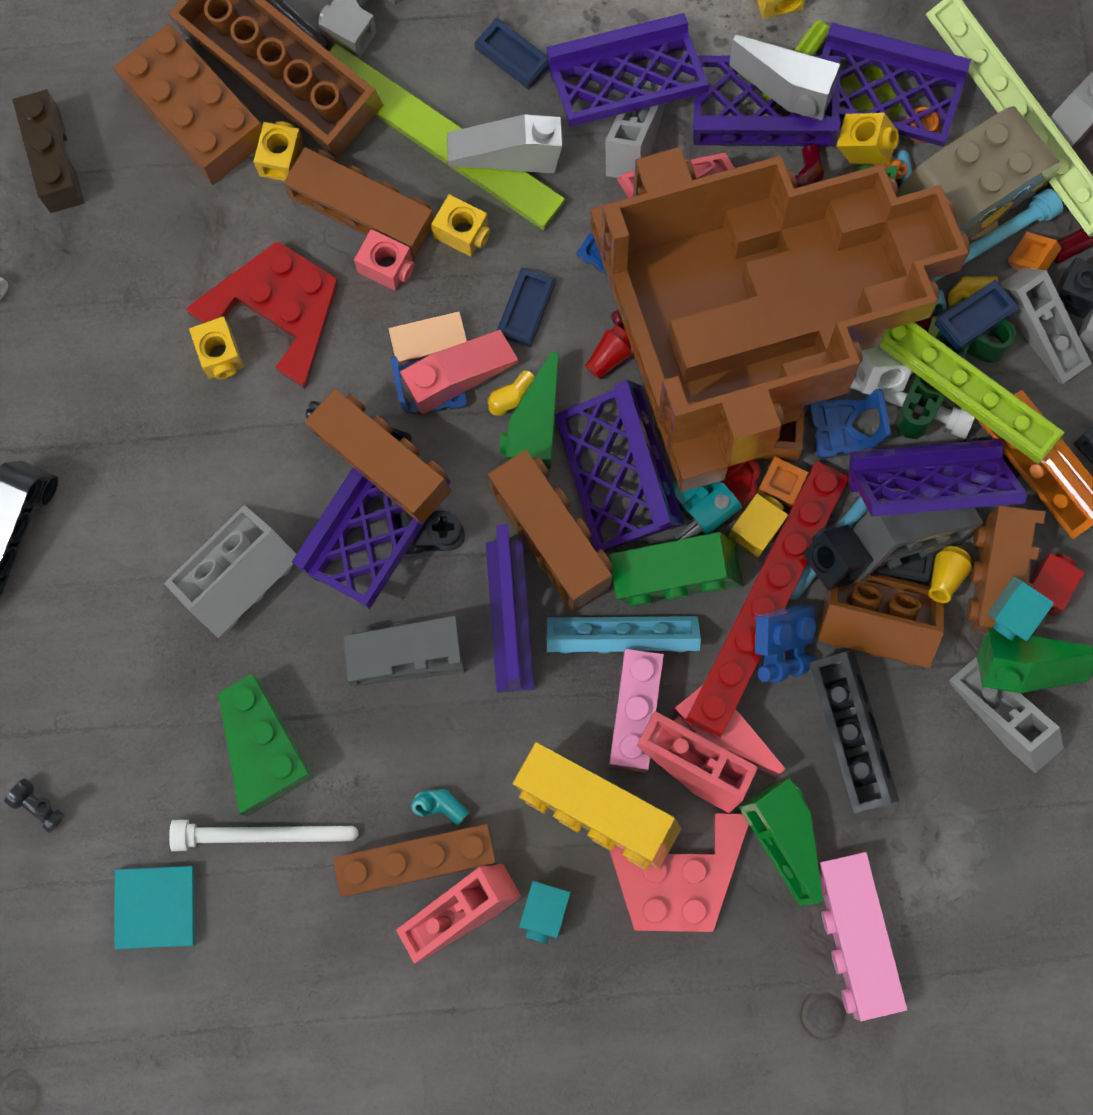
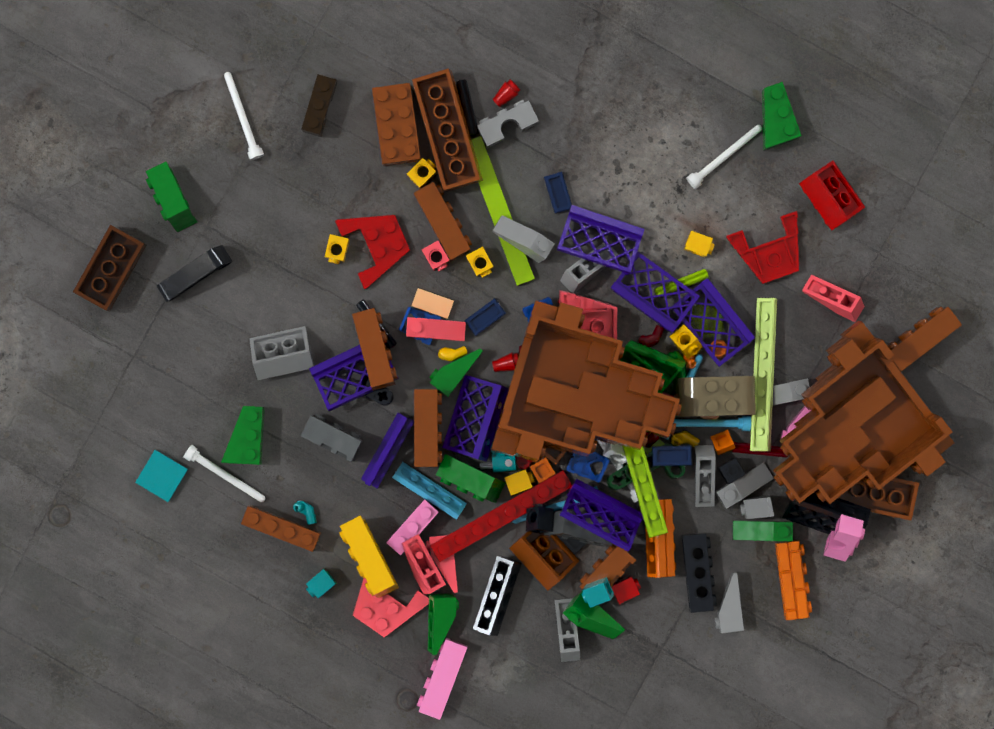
camera: 25 degrees right, 10 degrees up
(22, 796) = (135, 394): black piece -> none
(459, 911) = (285, 560): coral slope -> none
(785, 631) = (495, 535): blue plate -> none
(788, 77) = (668, 297): light grey slope -> none
(949, 572) = (584, 556): yellow cone -> none

